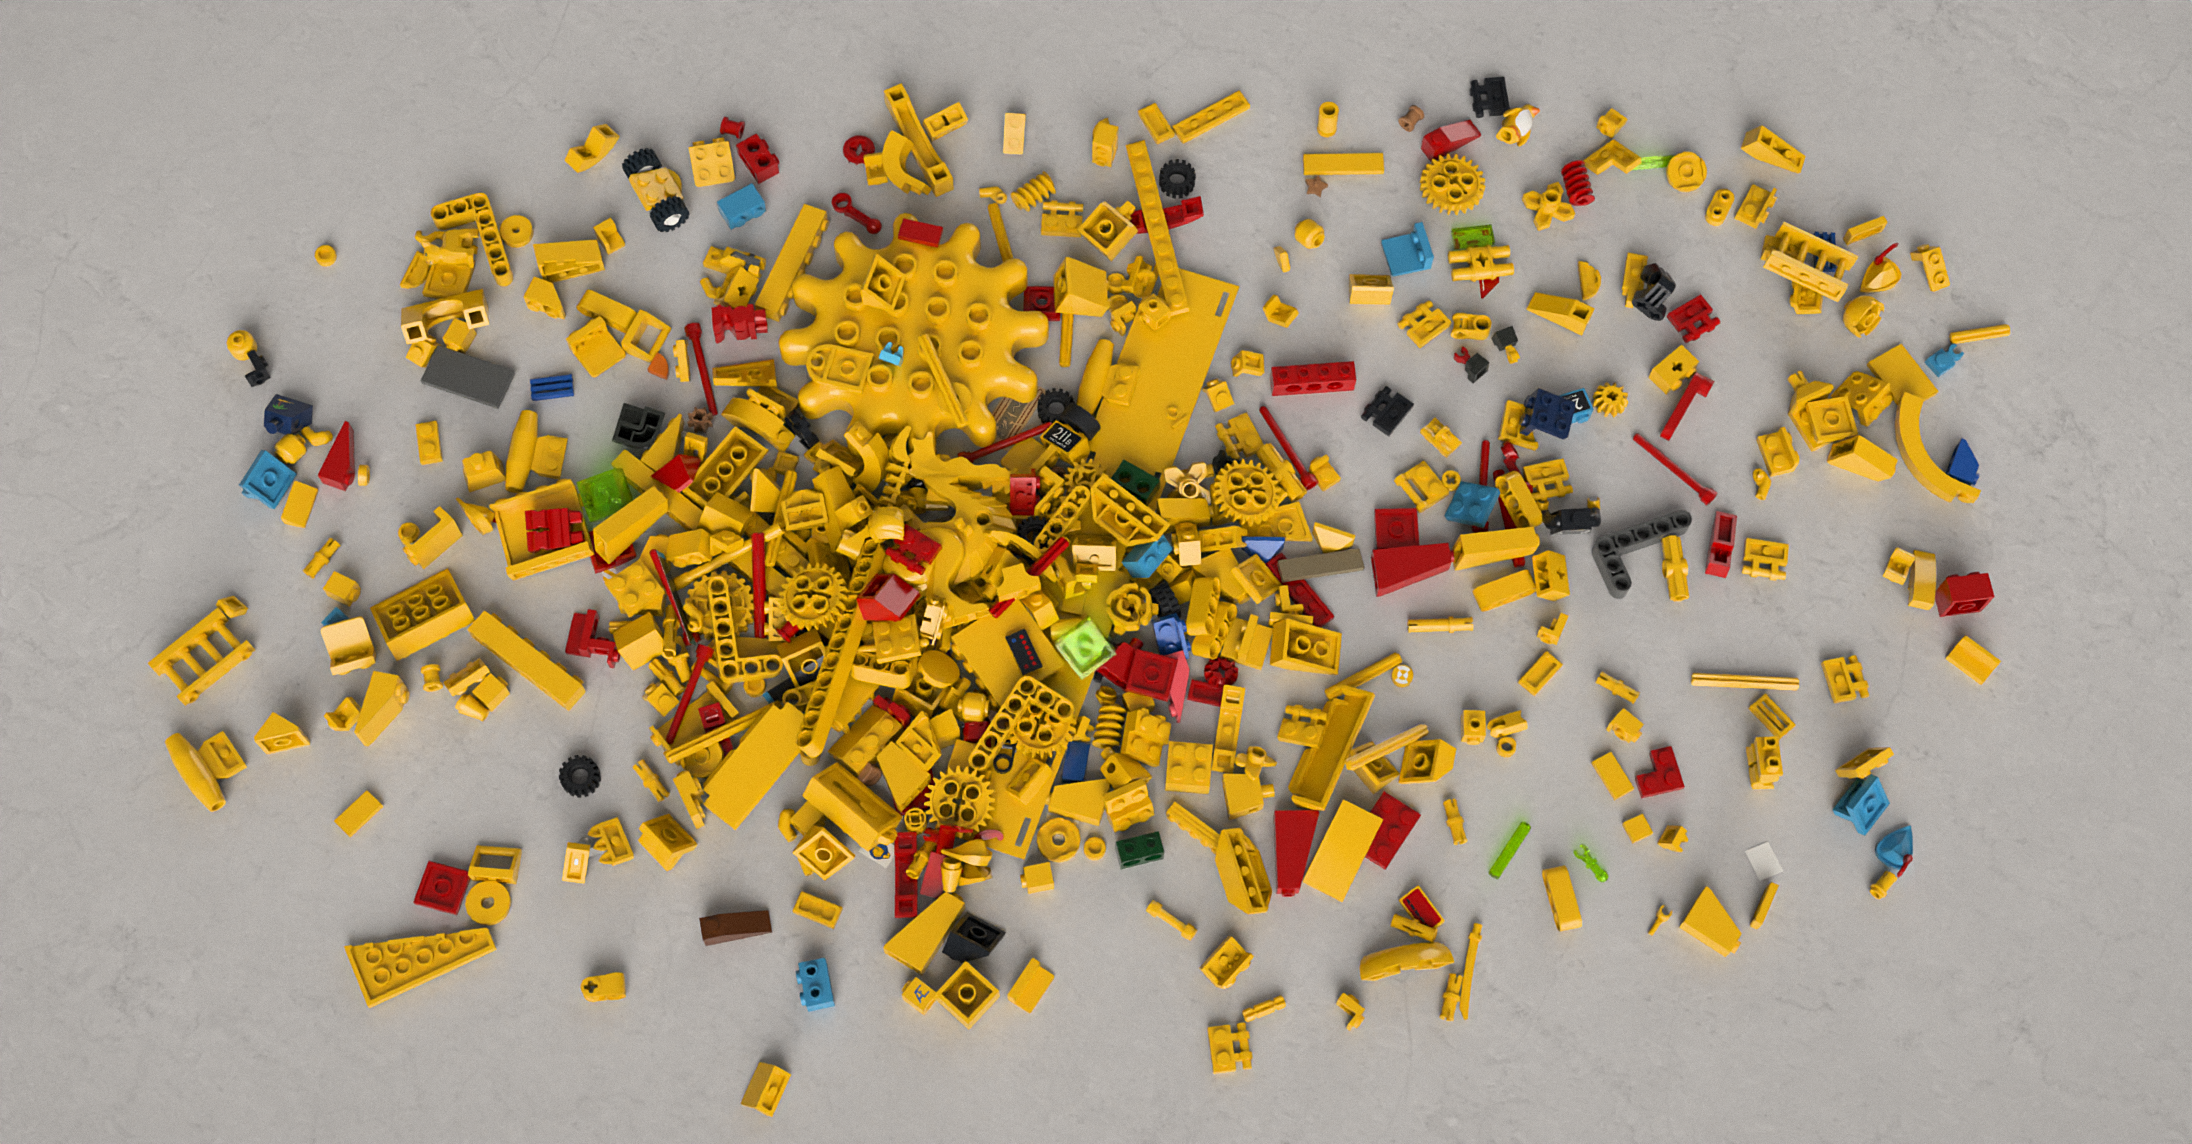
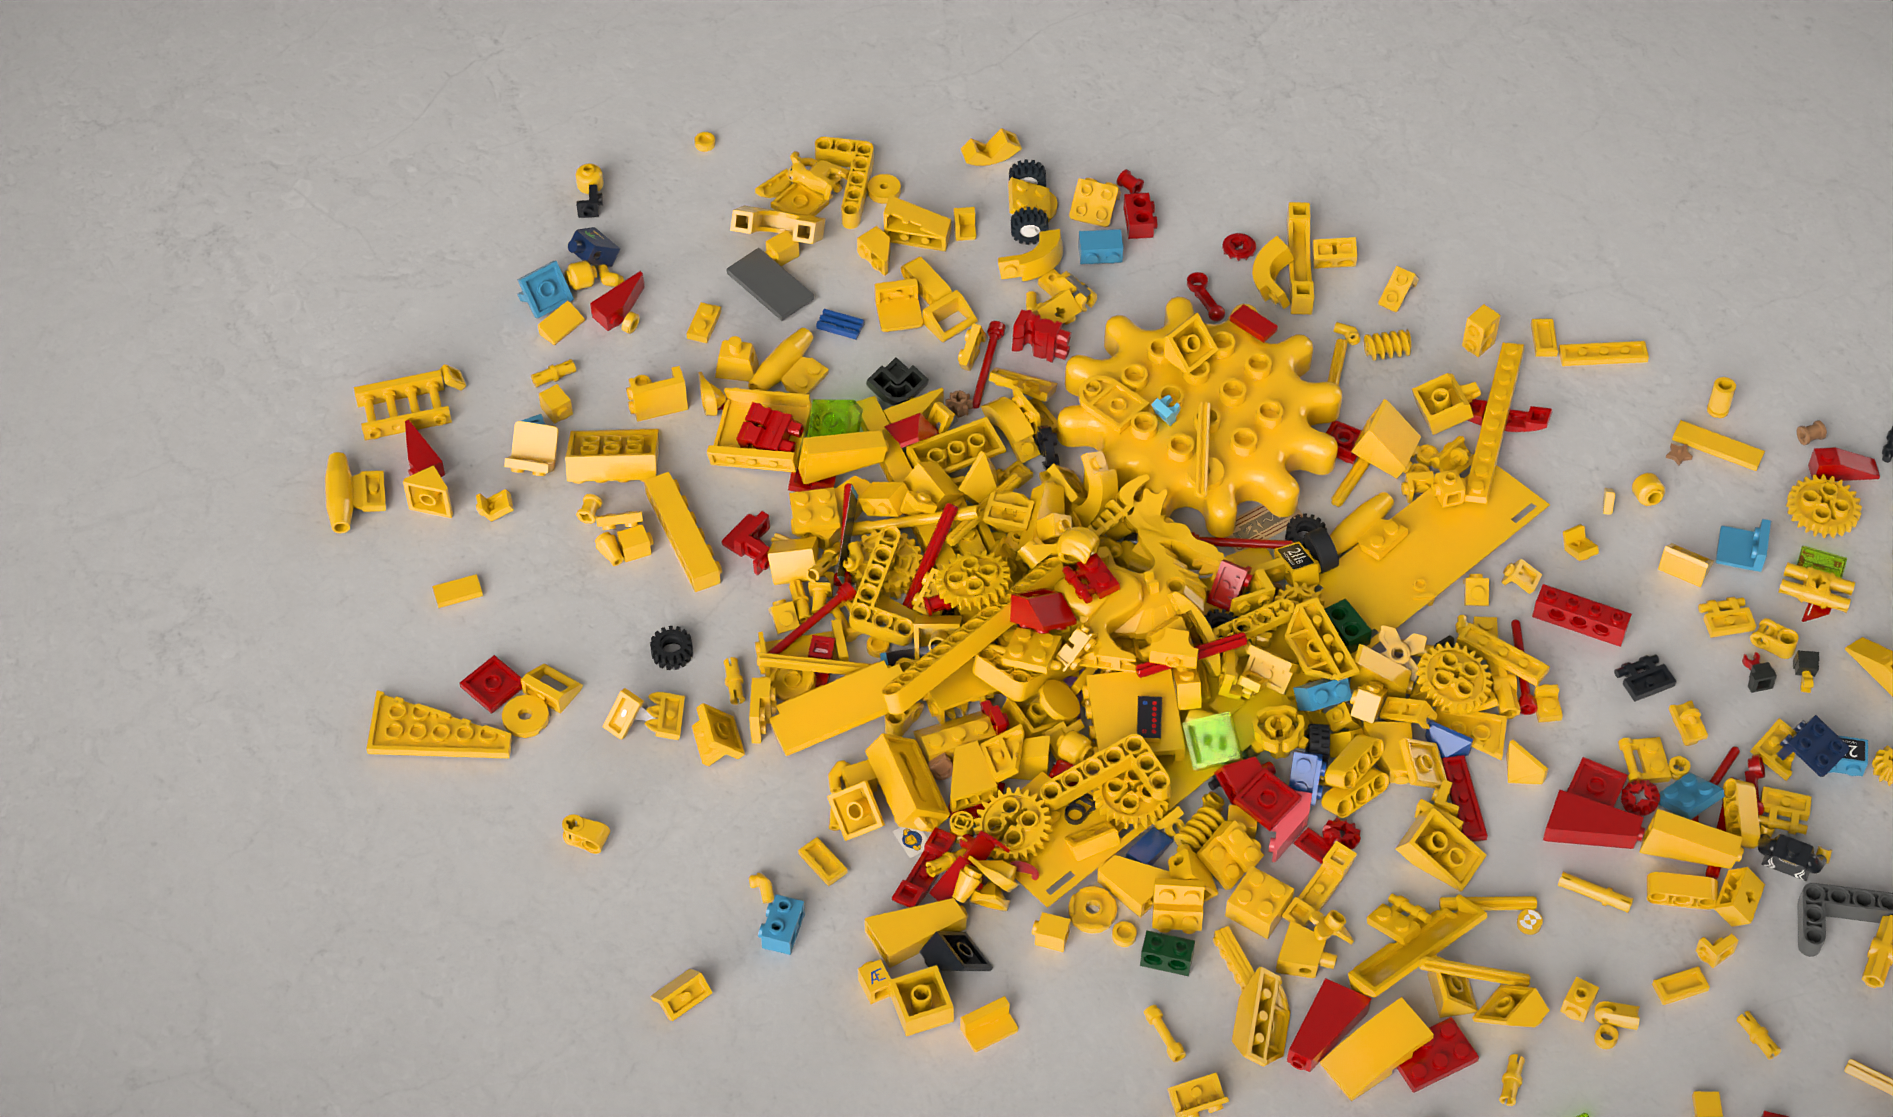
camera: 30 degrees right, 15 degrees down
(252, 702) = (420, 452): none -> red slope
(381, 705) = (529, 508): yellow slope -> none
(422, 351) = (742, 245): yellow bracket -> none
(659, 367) = (947, 347): orange tile -> none
(695, 246) = (1035, 262): none -> yellow arch
(734, 926) = (735, 838): reddish brown slope -> none
(782, 956) = (765, 885): none -> yellow arm
(792, 261) = (1131, 302): yellow brick -> none
(874, 169) = (1243, 268): yellow bracket -> none
(1061, 225) = (1399, 384): yellow plate -> none
(1173, 188) = (1541, 381): black tyre -> none
(1247, 642) = (1384, 819): yellow bracket -> none
(1270, 447) = (1503, 654): none -> yellow tile
(1320, 565) = (1498, 783): dark tan tile -> none
(1441, 530) = (1645, 806): none -> red gear
(1626, 726) = (1747, 1074): yellow brick -> none

